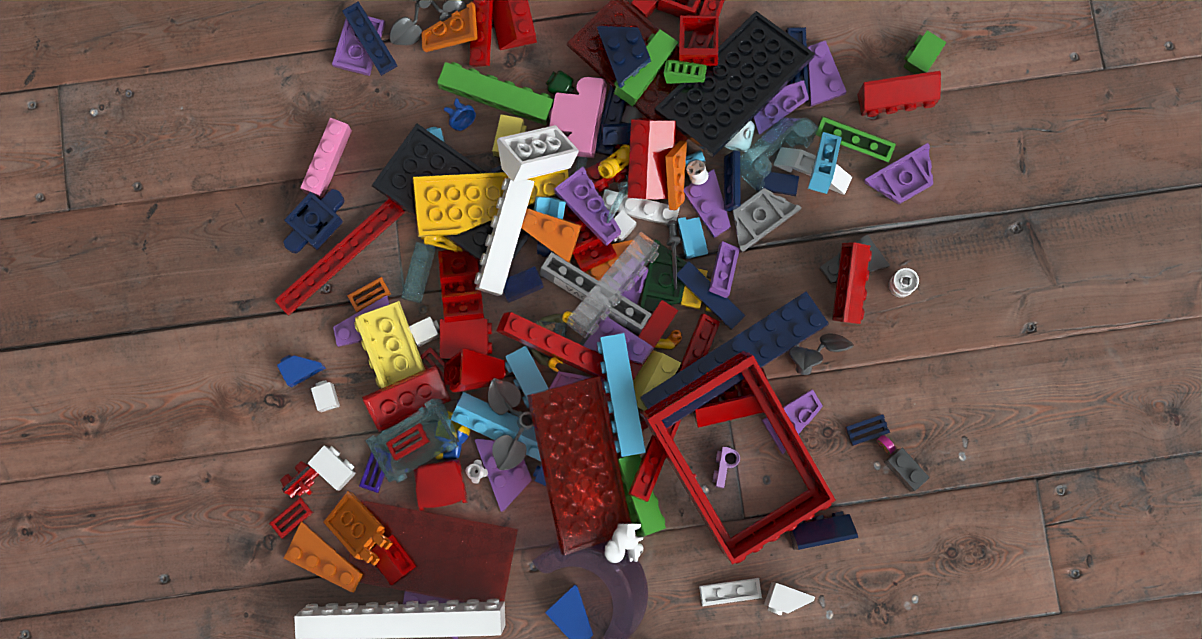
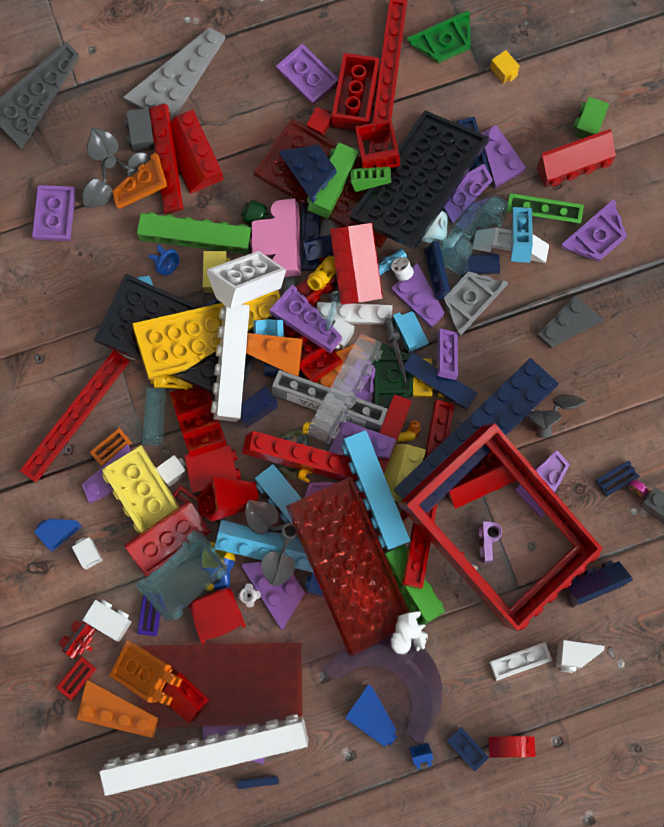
camera: 10 degrees left, 5 degrees down
(313, 221) = (43, 387): dark blue brick -> none
(326, 158) = (44, 326): bright pink brick -> none
(369, 38) = (64, 205): dark blue plate -> none
(419, 427) = (182, 584): red tile -> none
(676, 174) = (382, 274): orange wing -> none
(851, 283) = (571, 341): red slope -> none
(903, 282) = (620, 332): white wheel -> none

